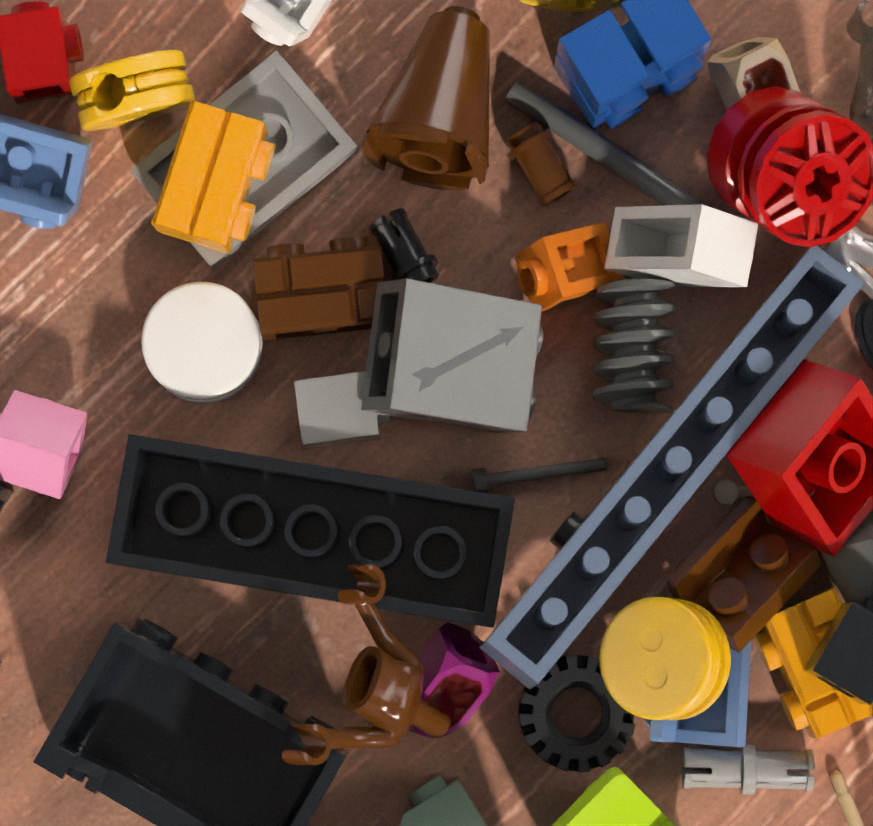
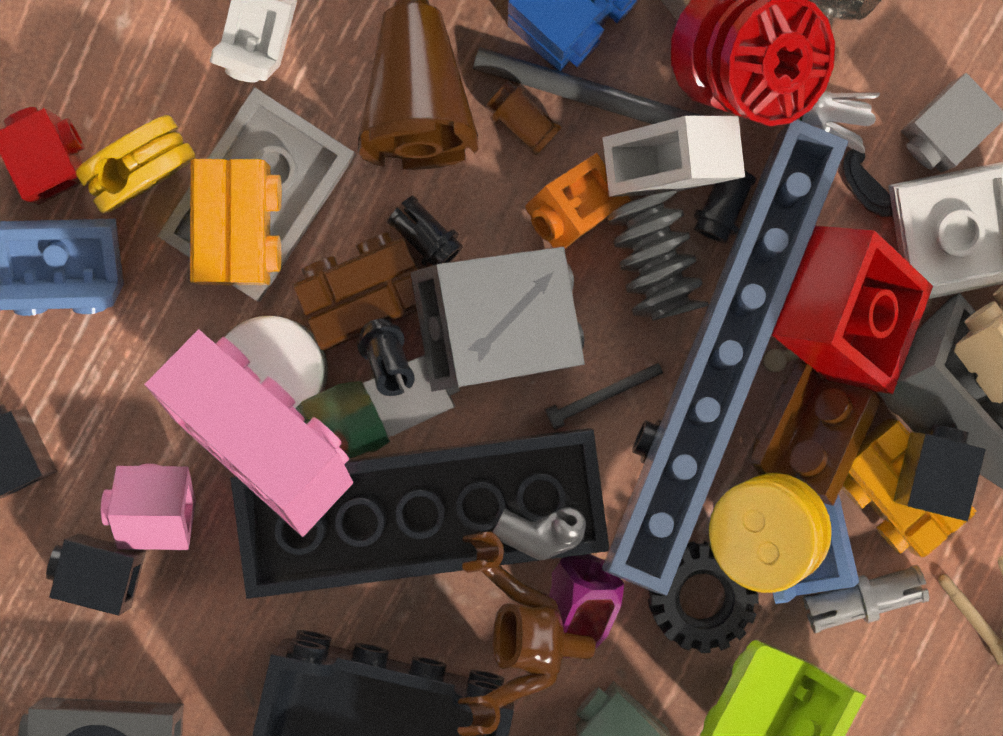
camera: 20 degrees left, 5 degrees up
(169, 388) = (253, 429): none -> bright pink brick
(251, 416) = (349, 415): none -> clear green rock
(325, 349) = (382, 346): none -> black pin
(430, 591) = (544, 537): none -> flat silver arm
(719, 317) = (723, 208): none -> black pin

